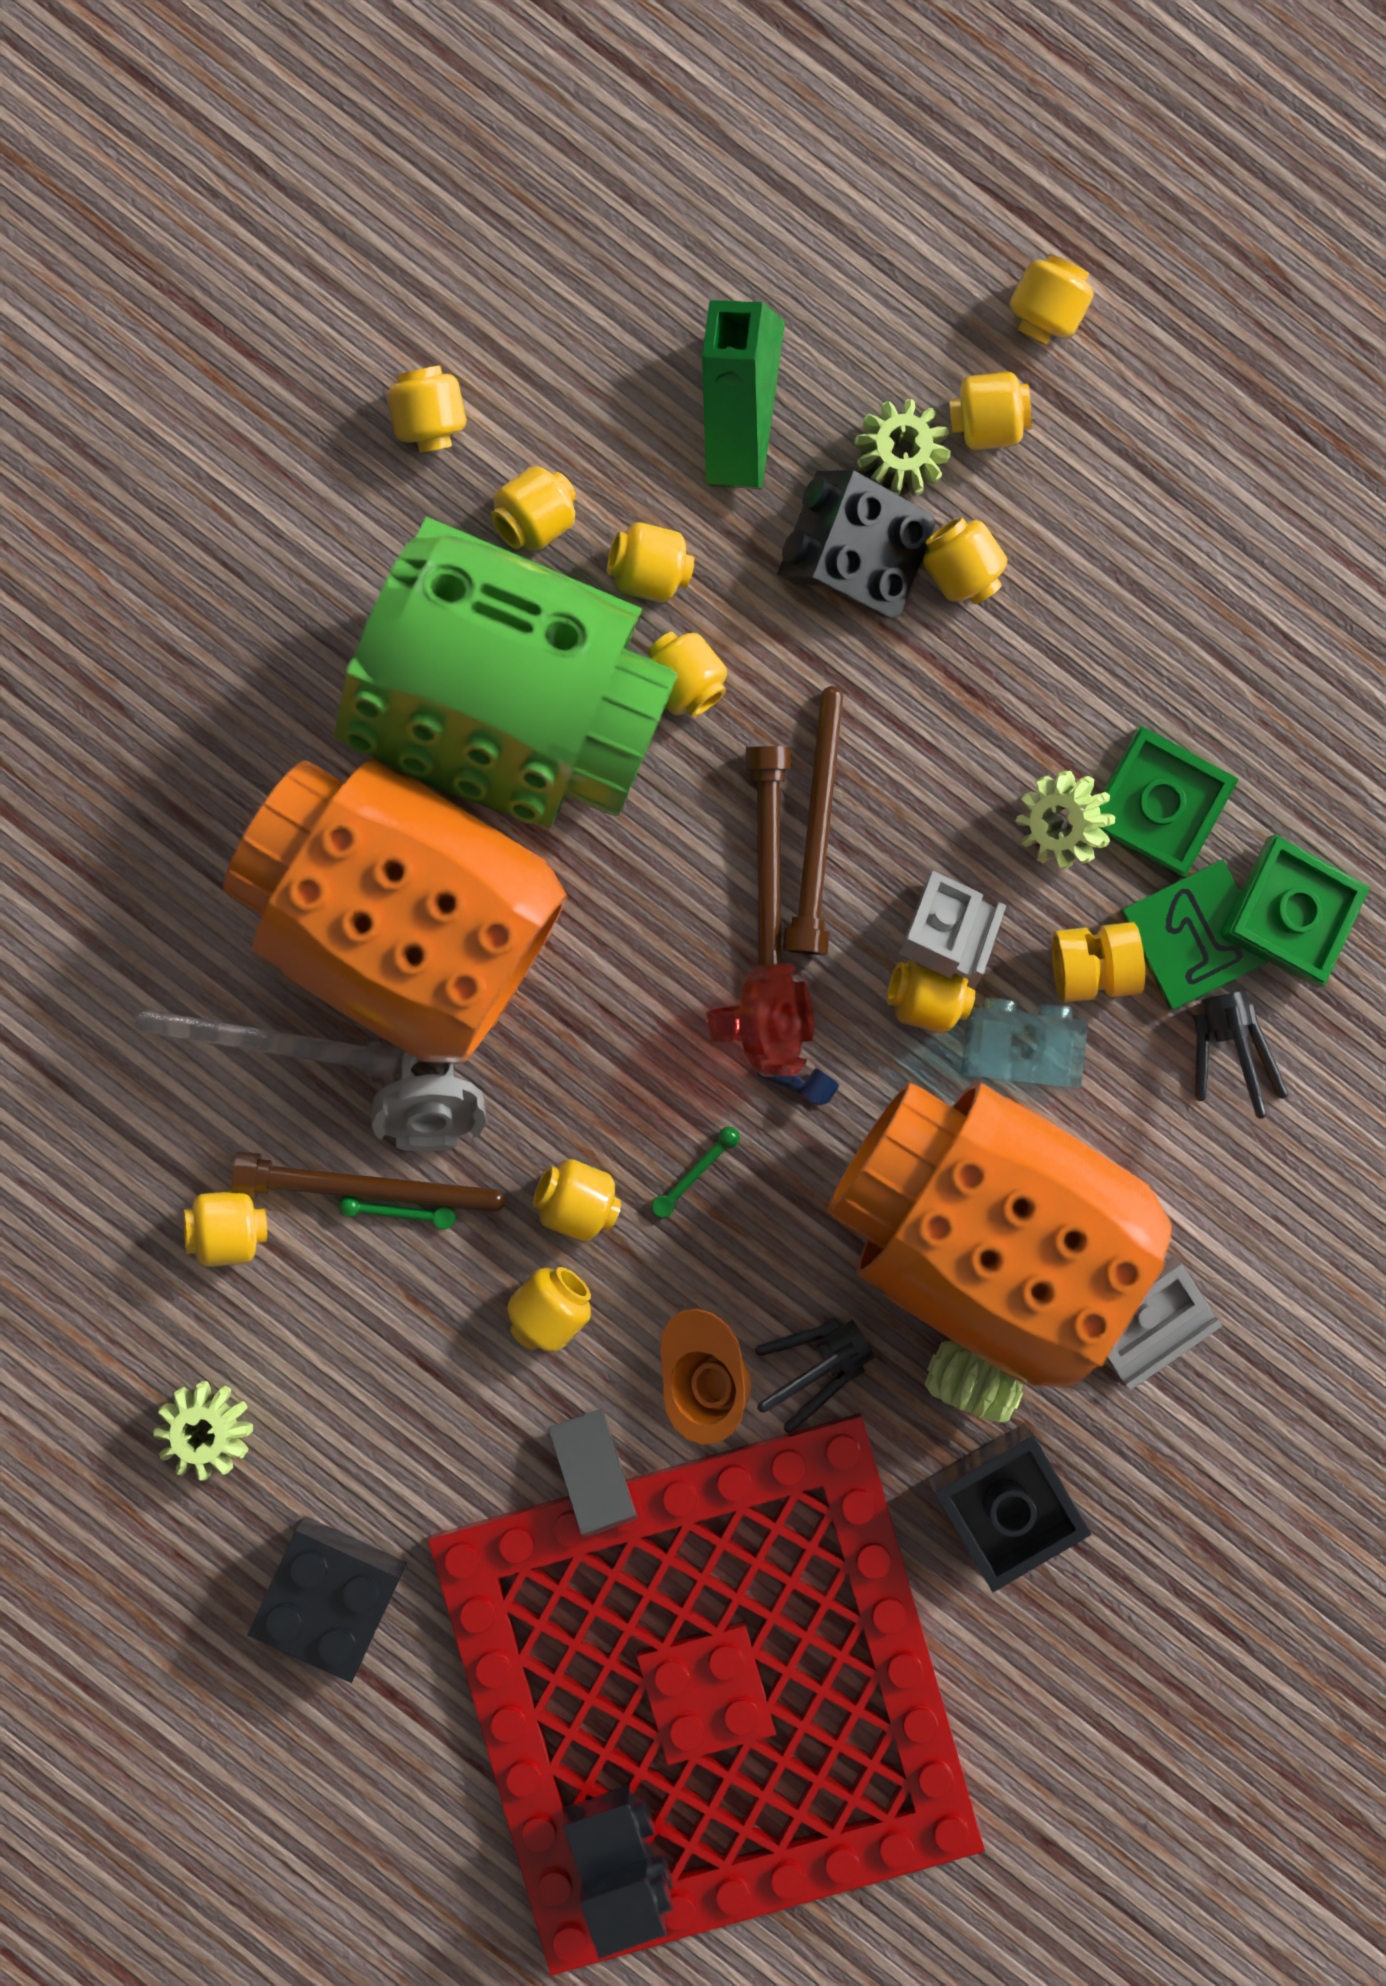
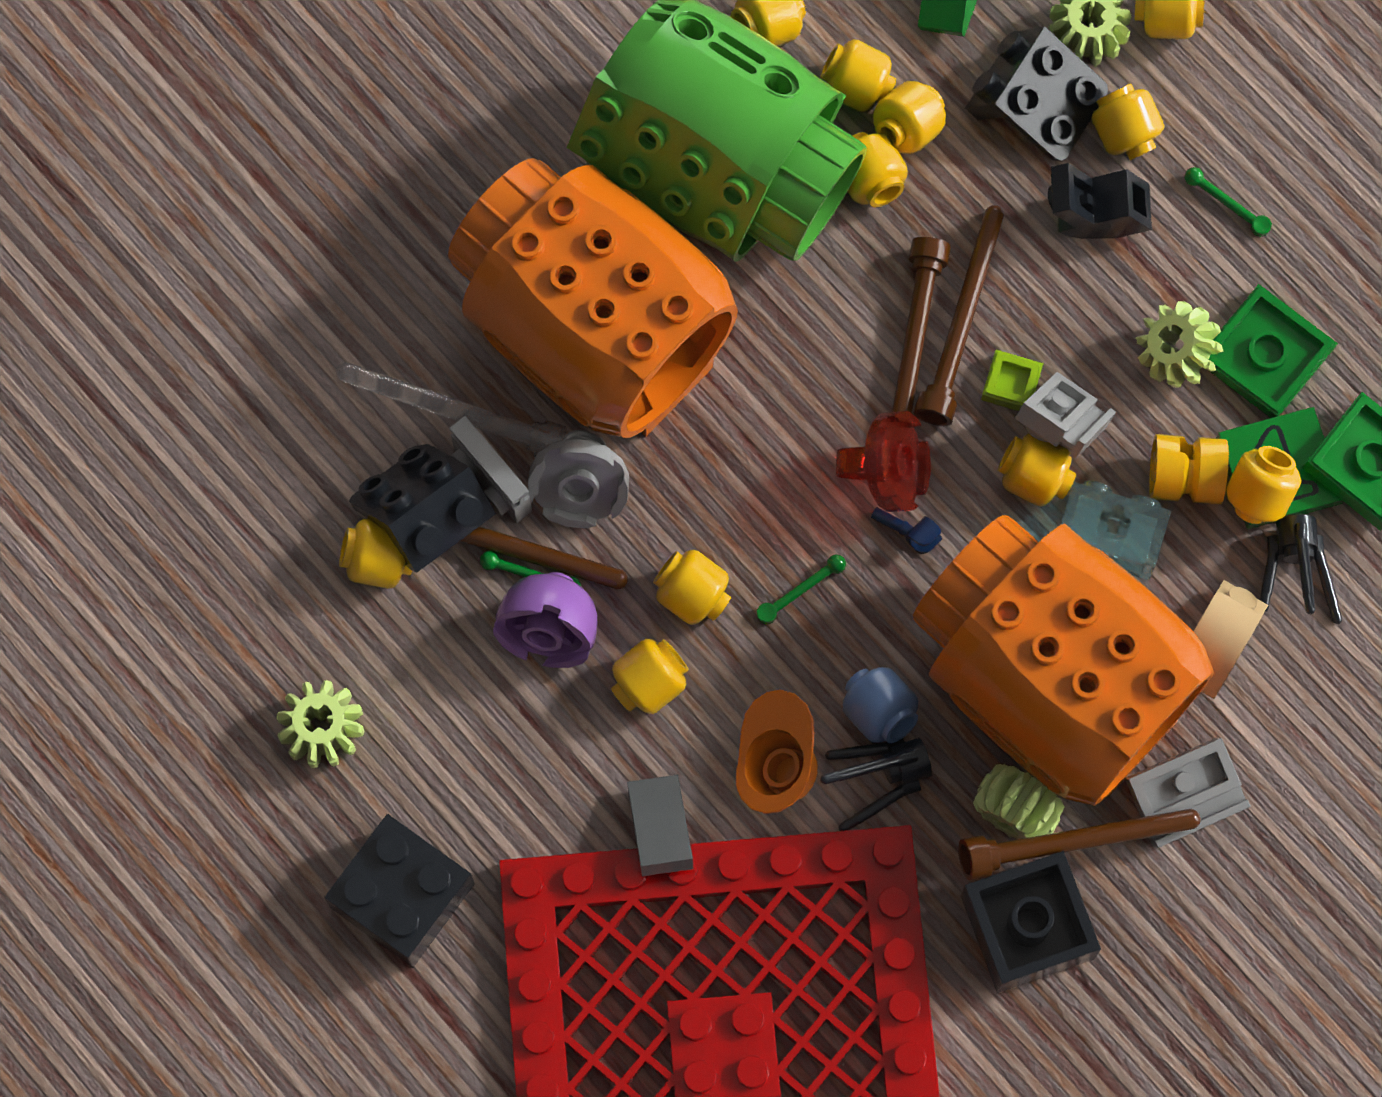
camera: 10 degrees right, 15 degrees down
(259, 1167) = (424, 503): none -> black bracket
(312, 1101) = (503, 487): none -> light grey plate
(426, 1267) = (548, 618): none -> medium lavender cylinder
(718, 603) = (910, 116): none -> yellow head
(805, 1293) = (880, 705): none -> medium blue head
(885, 890) = (1011, 380): none -> lime tile
(949, 667) = (1099, 205): none -> black brick
(949, 1458) = (982, 856): none -> reddish brown piece
(1129, 652) = (1259, 224): none -> green hinge
(1167, 1140) = (1227, 629): none -> tan brick
(1186, 973) = (1263, 485): none -> yellow head

